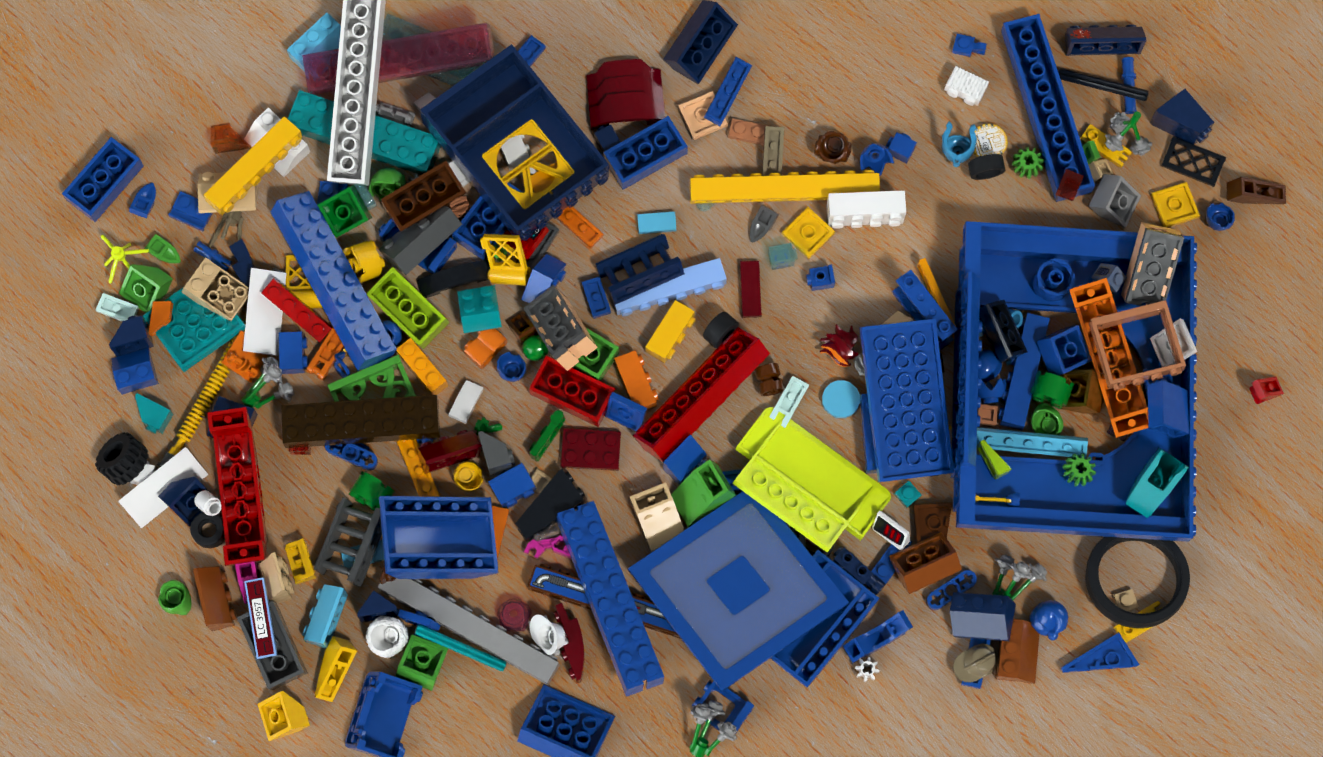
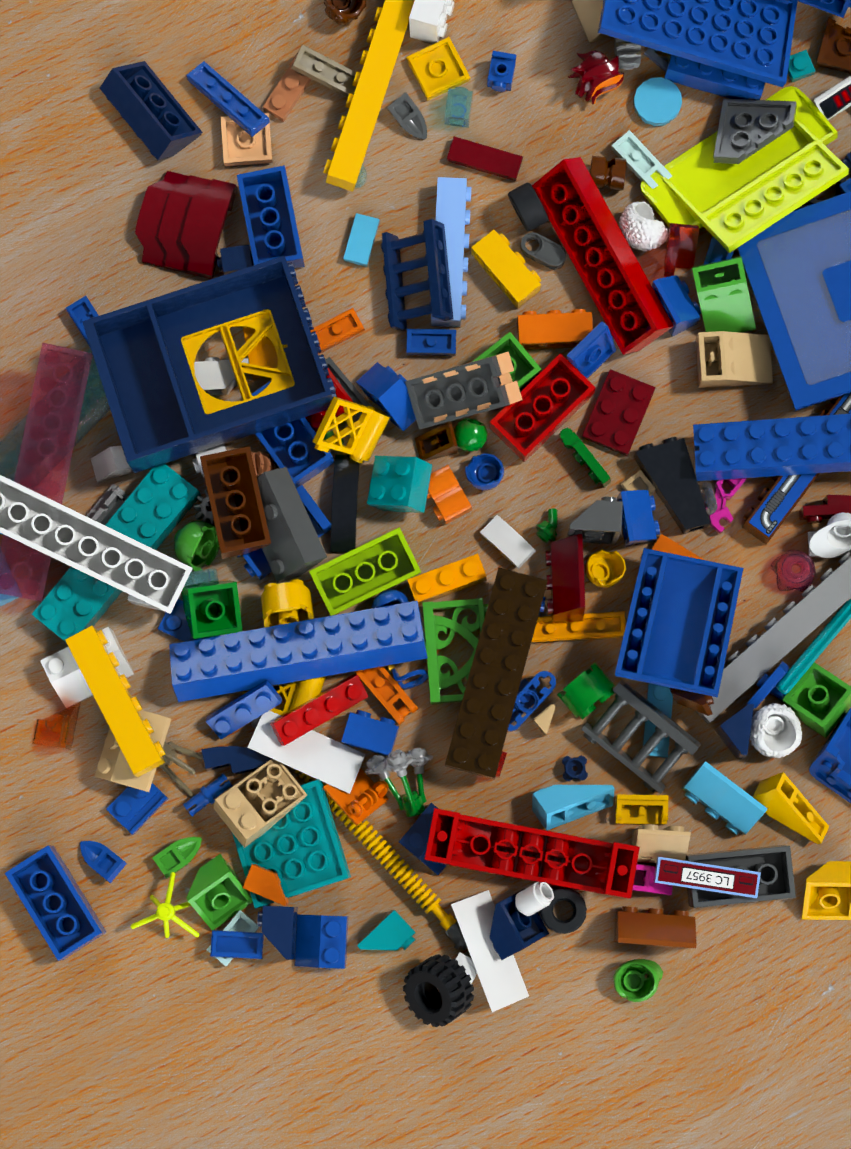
camera: 65 degrees left, 5 degrees up
(111, 311) = (237, 944): none -> blue tile
(279, 258) = (244, 709): none -> blue plate
(286, 506) = (566, 803): none -> medium azure slope
(317, 499) = (569, 773): none -> dark blue plate
(343, 471) = (544, 719): none -> tan slope
(693, 357) = (548, 254): none -> dark grey piece
(728, 449) = (680, 247): none -> clear red panel
(735, 417) = (641, 227): none -> white hair
(842, 470) = (750, 126): none -> dark grey plate

